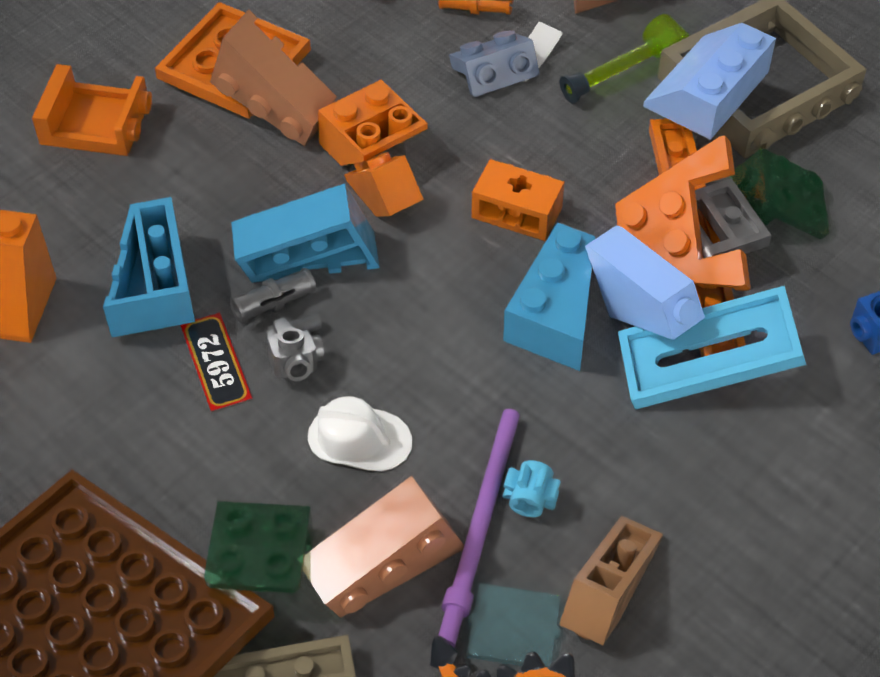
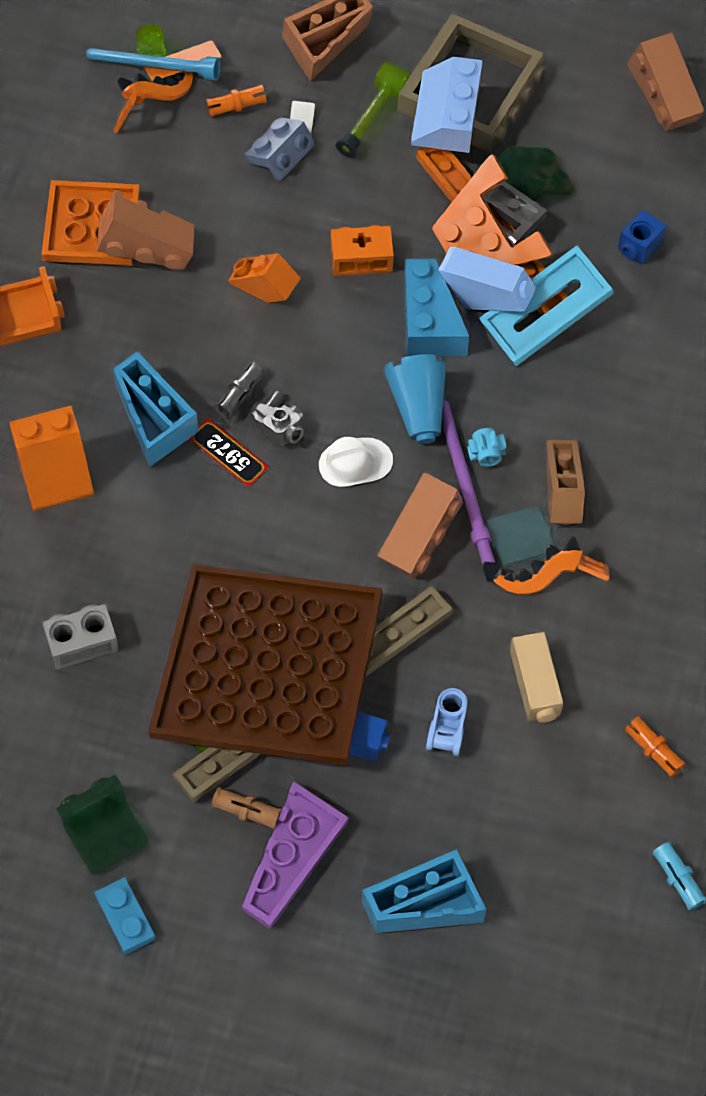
camera: 30 degrees left, 10 degrees up
(258, 546) = (349, 557): clear green bracket -> none
(307, 234) = (237, 339): dark azure wedge -> none
(367, 124) = (230, 238): orange slope -> none
(481, 385) = (419, 394): none -> dark azure cone

